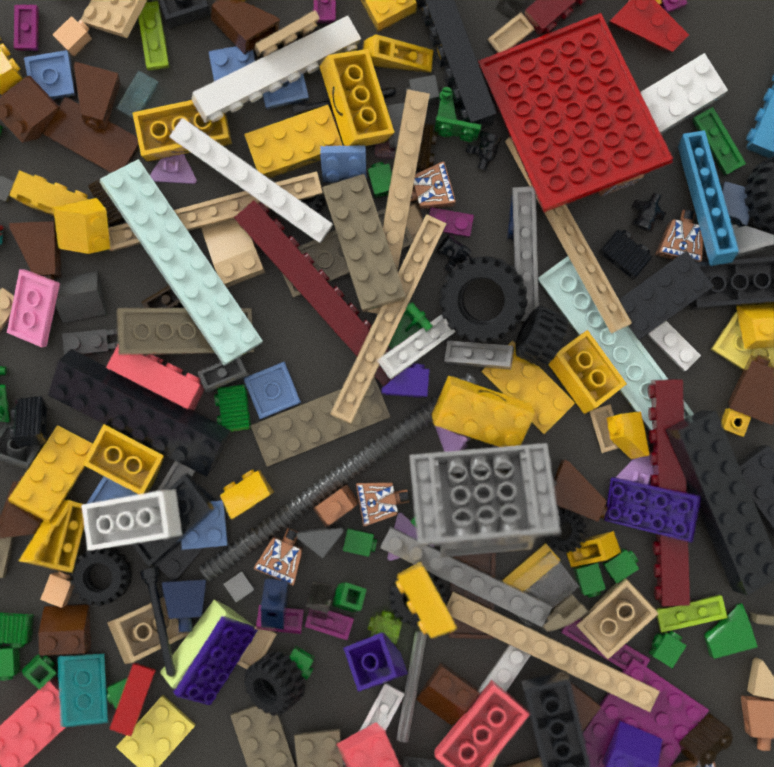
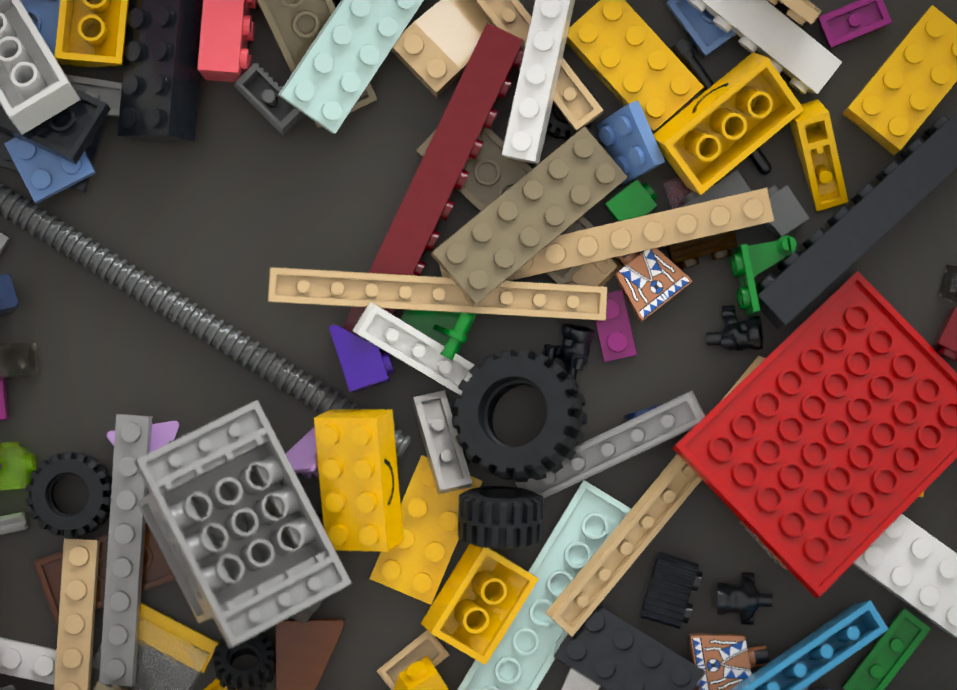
camera: 70 degrees right, 0 degrees up
(233, 408) = (228, 132): green brick -> none
(246, 493) = (116, 199): yellow slope -> none
(272, 390) = (275, 176): medium blue tile -> none
(281, 557) = (49, 285): torso -> none
(314, 426) = (245, 249): dark tan plate -> none
(320, 539) = (95, 327): dark grey slope -> none
(336, 505) = (152, 331): nougat torso -> none
(349, 597) = (31, 400): green brick -> none
(359, 542) = (114, 383): green brick -> none
(379, 501) = (182, 386): torso -> none
(425, 601) = (67, 504): yellow slope -> none
(511, 33) = (917, 301): tan tile -> none

